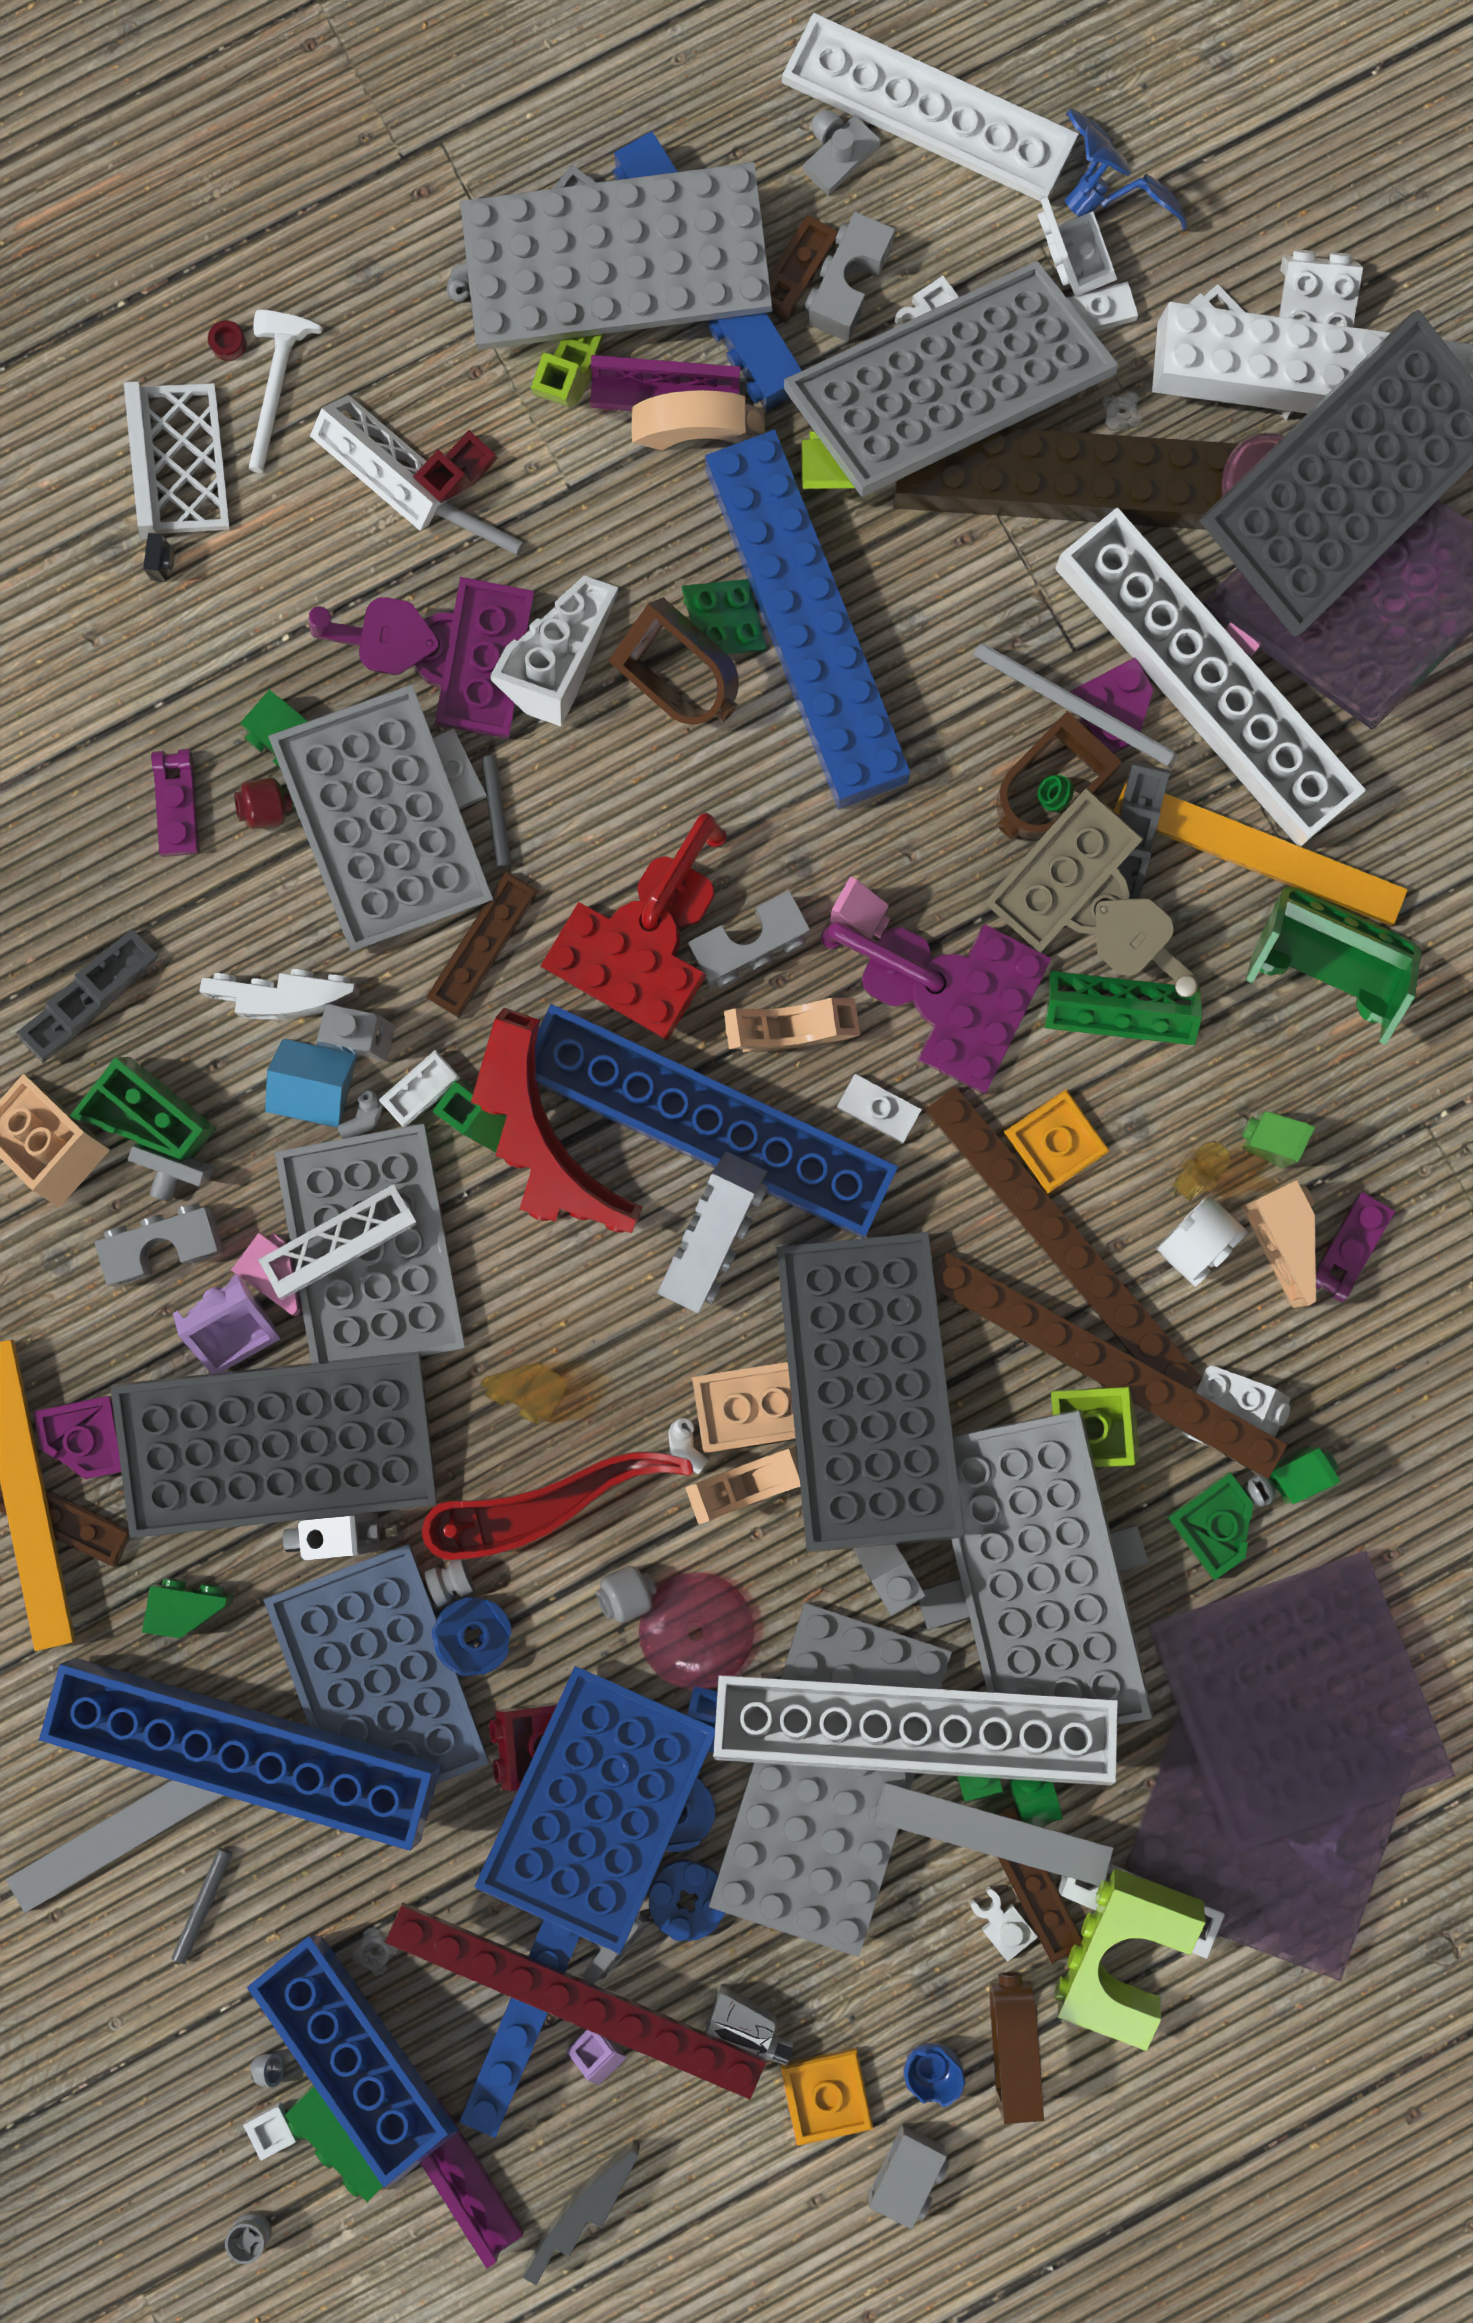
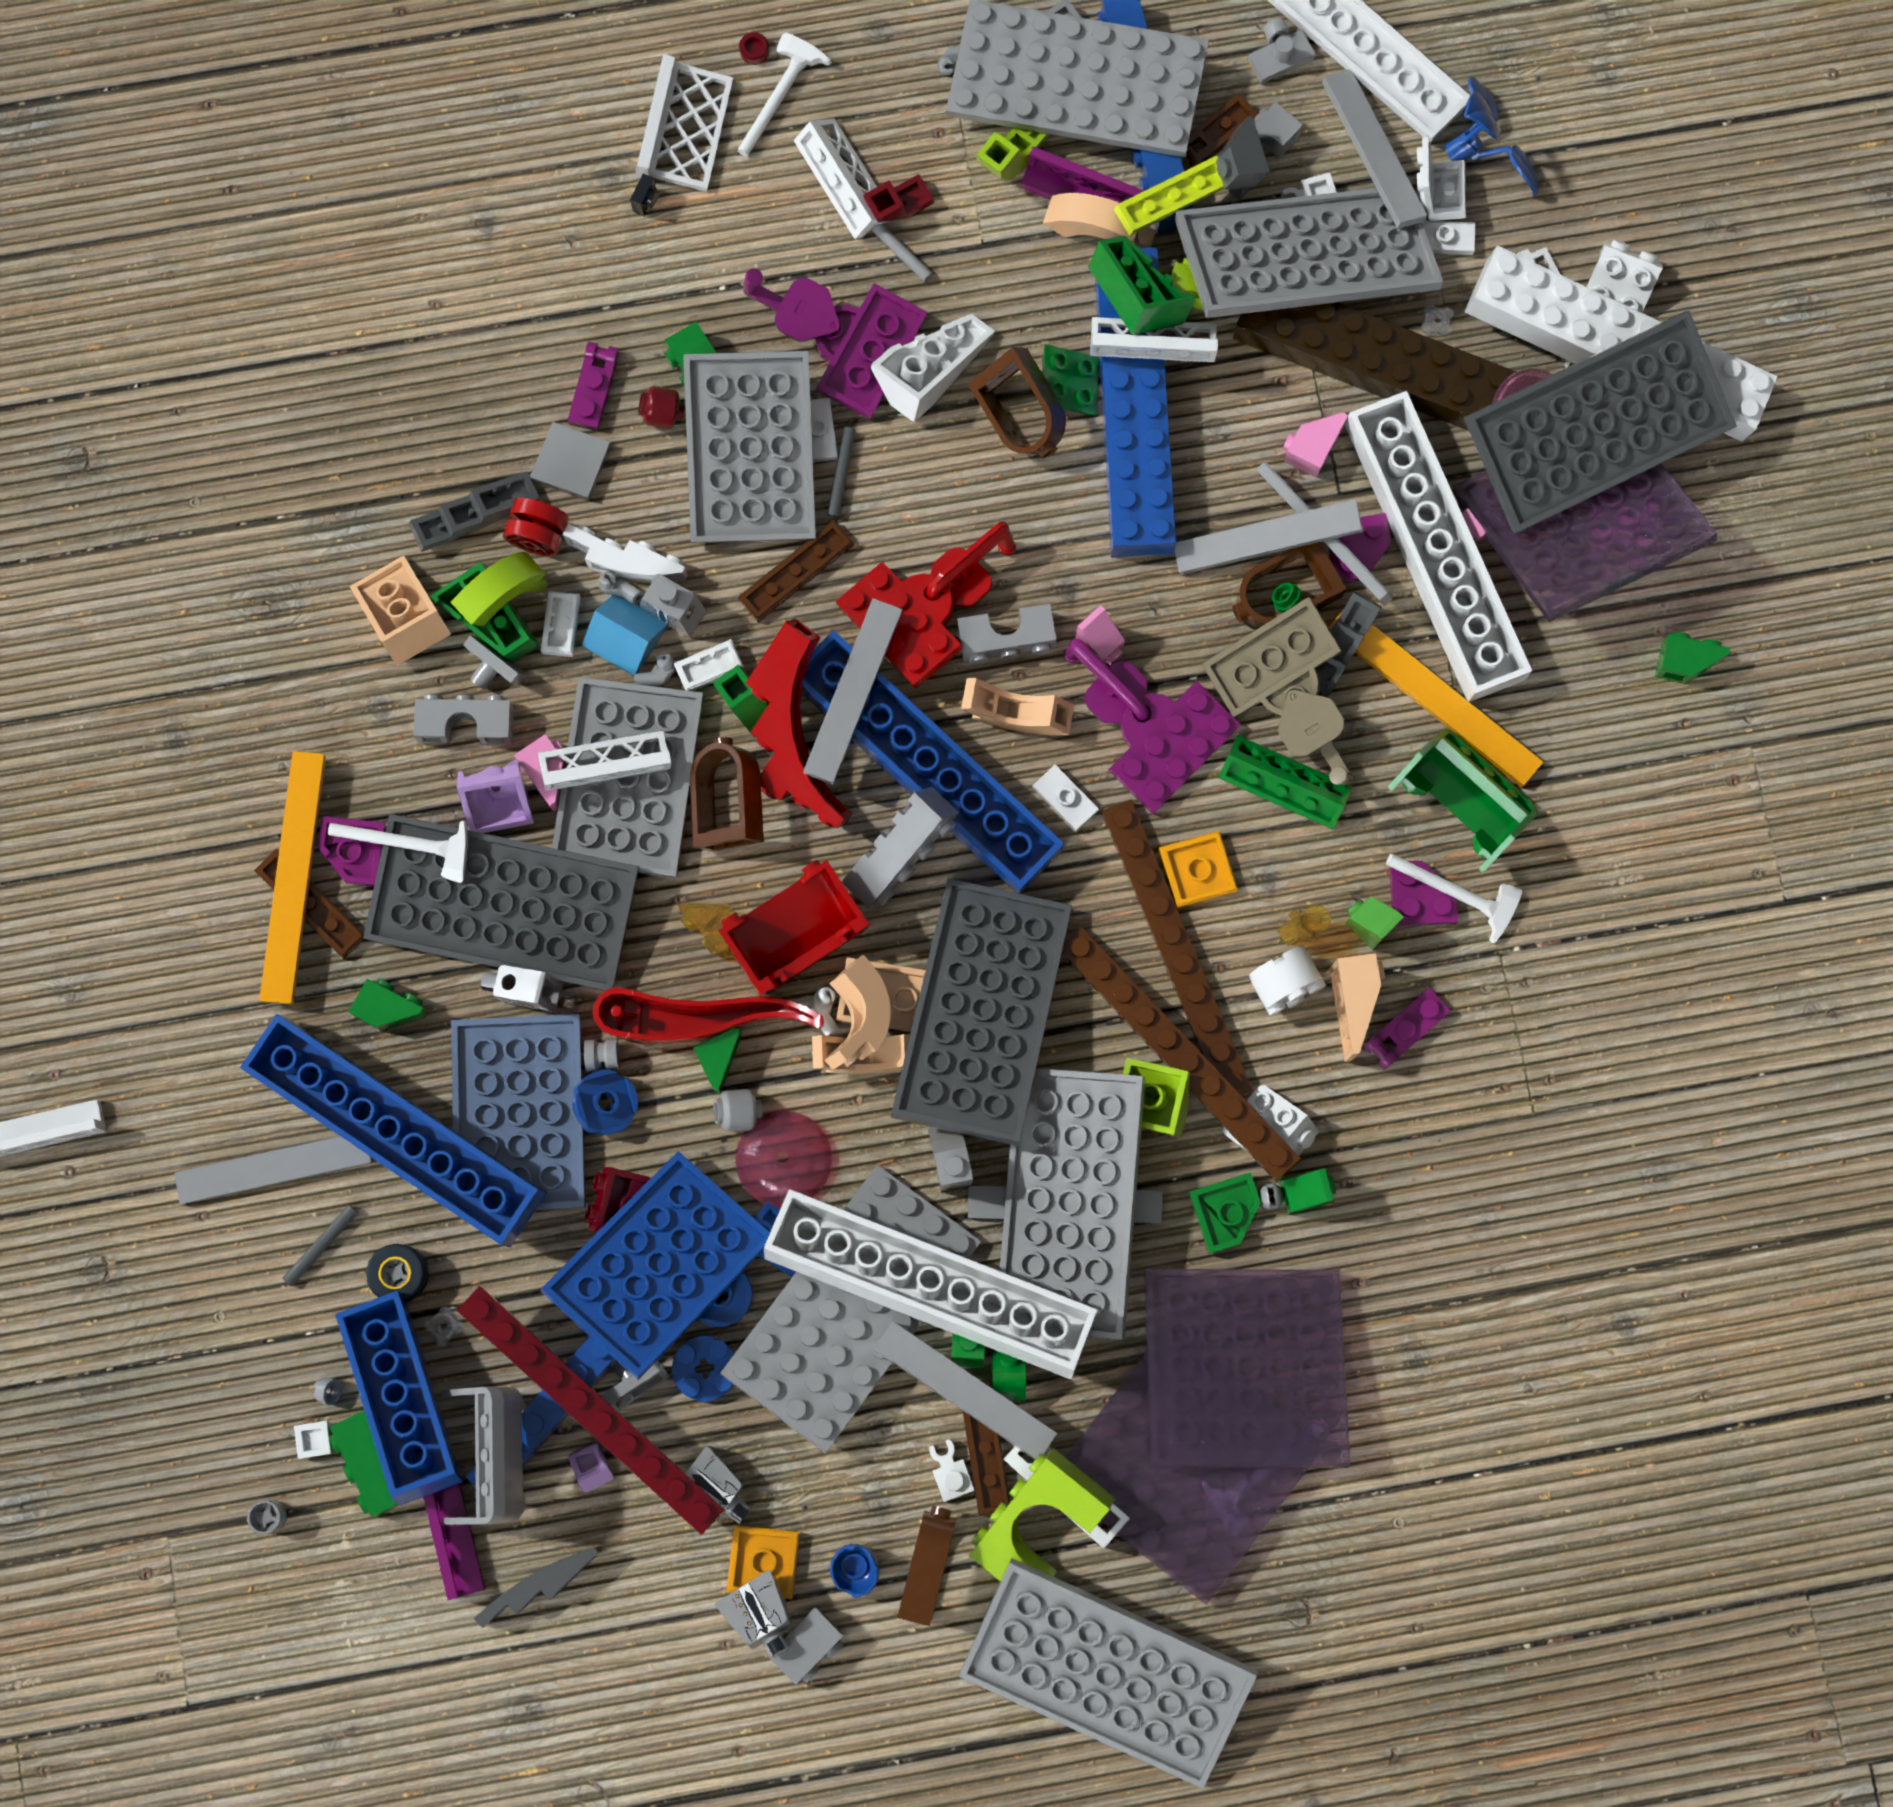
camera: 15 degrees right, 5 degrees down
(146, 1080) = (498, 586): none -> lime arch
(165, 993) = (535, 527): none -> red wheel
(179, 900) = (570, 461): none -> light grey tile
(198, 1405) = (452, 850): none -> white piece
(232, 1095) = (560, 624): none -> white plate
(287, 1030) = (619, 587): none -> light grey arm
(292, 1922) = (387, 1268): none -> black wheel
(467, 1251) = (703, 801): none -> reddish brown window
(486, 2088) = (497, 1455): none -> light grey windscreen
(582, 1541) = (717, 1056): none -> green slope
(597, 1069) = (852, 691): none -> light grey tile
(620, 1368) = (793, 928): none -> red windscreen
(741, 1435) = (869, 1010): none -> light nougat arch
(769, 488) = (1136, 288): none -> green wedge
(773, 362) = (1170, 196): none -> neon yellow plate
(809, 549) = (1154, 346): none -> white fence
(840, 291) = (1243, 158): none -> dark grey slope
(843, 2165) = (758, 1613): none -> light grey torso
(985, 231) = (1374, 149): none -> light grey tile
(1014, 730) = (1268, 537): none -> light grey tile
(1028, 602) = (1313, 443): none -> bright pink slope
(1257, 2097) = (1108, 1673): none -> light grey plate
(1318, 1087) = (1420, 902): none -> magenta plate
(1411, 1078) = (1498, 911): none -> white piece

